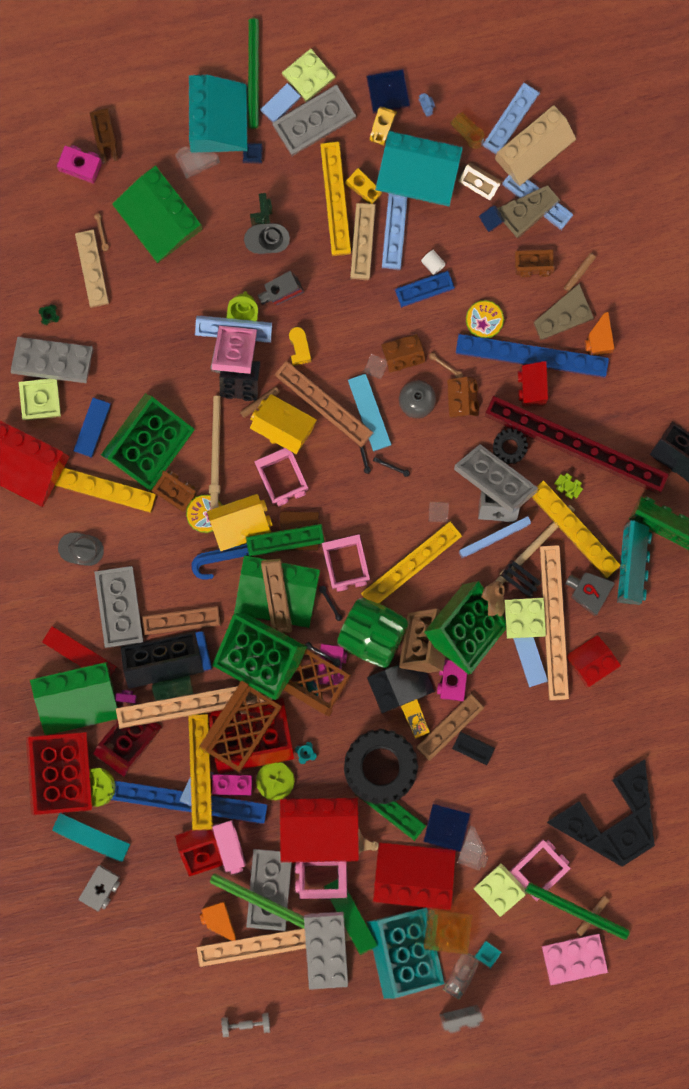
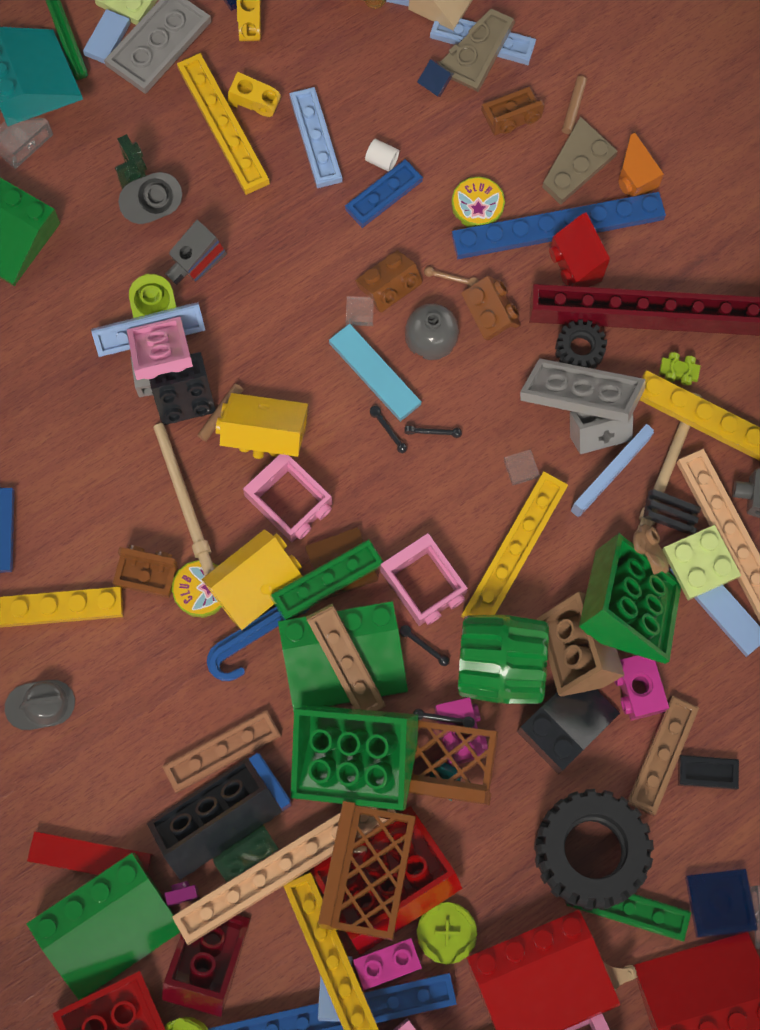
camera: 25 degrees left, 10 degrees down
(119, 607) = (123, 766): light grey plate -> none
(147, 441) = (83, 519): green slope -> none
(253, 153) = (92, 108): dark blue tile -> none
(298, 339) = (249, 320): yellow leg -> none
(300, 751) = (483, 873): teal plate -> none
(324, 403) = (309, 382): nougat tile -> none
(362, 241) = (279, 162): tan plate -> none
(415, 718) = (610, 761): yellow leg -> none
(419, 168) = (317, 46): teal slope -> none
(480, 181) = (400, 42): tan slope -> none

